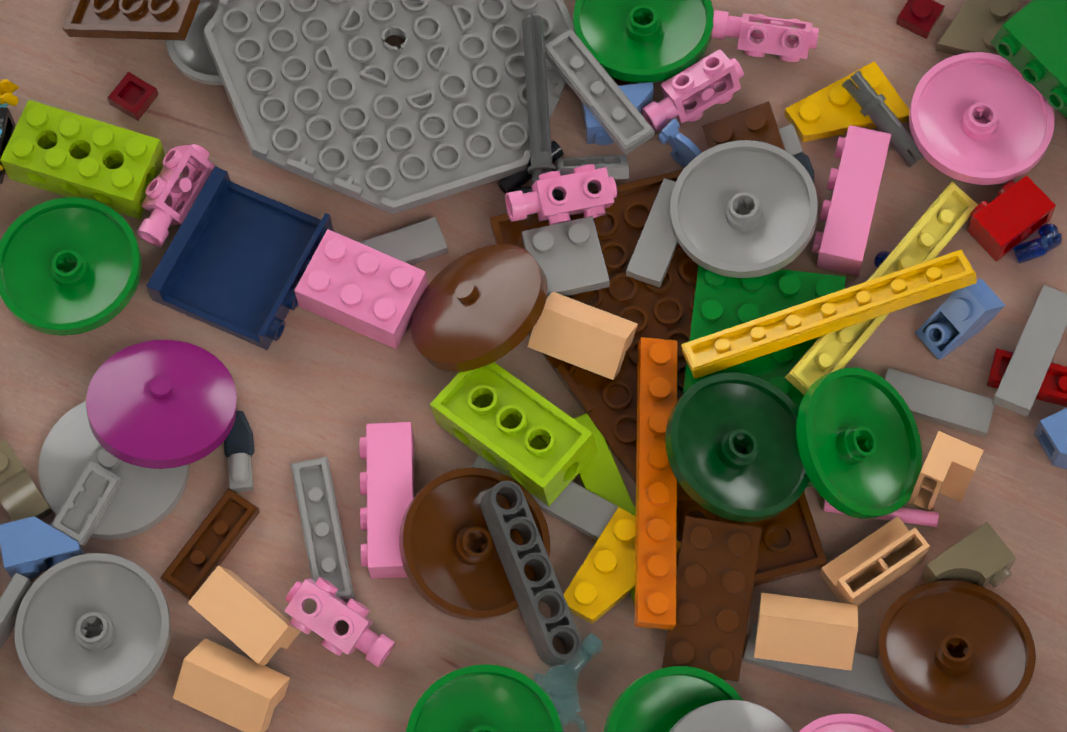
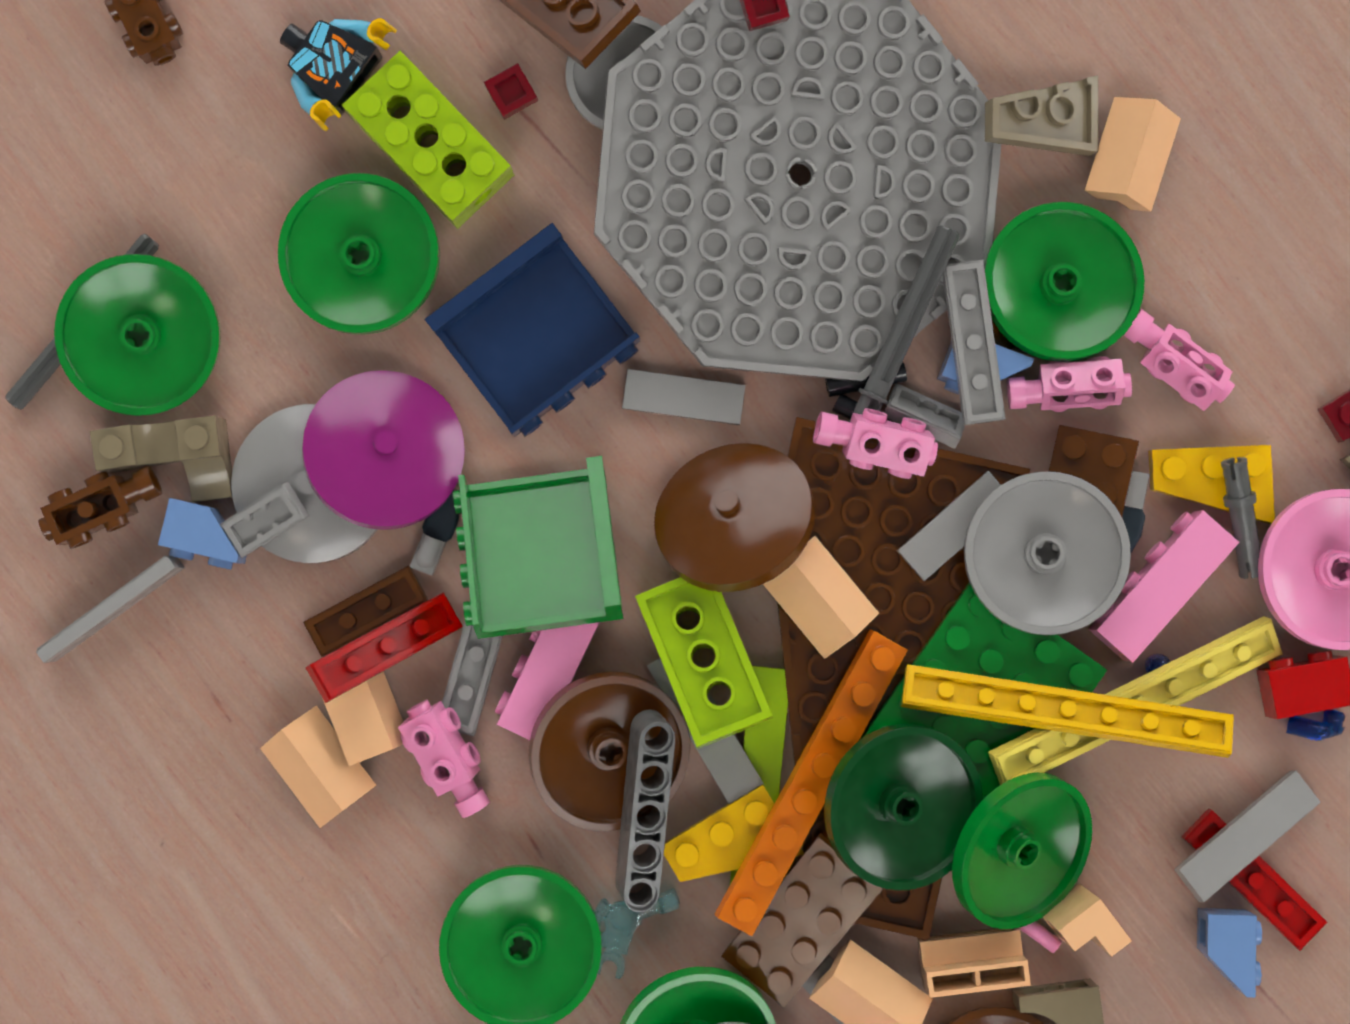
camera: 20 degrees right, 20 degrees up
(93, 629) = (214, 647): light grey dish -> none
(176, 191) = (502, 225): bright pink brick -> none
(239, 551) = (383, 647): none -> red tile
(334, 414) = (538, 552): none -> green panel
(361, 288) = (633, 428): bright pink brick -> none
(568, 256) = (849, 503): light grey plate -> none
(683, 148) = (1025, 442): medium blue piece -> none
(943, 403) = (1127, 834): light grey tile -> none
(959, 318) = (1187, 769): medium blue slope -> none

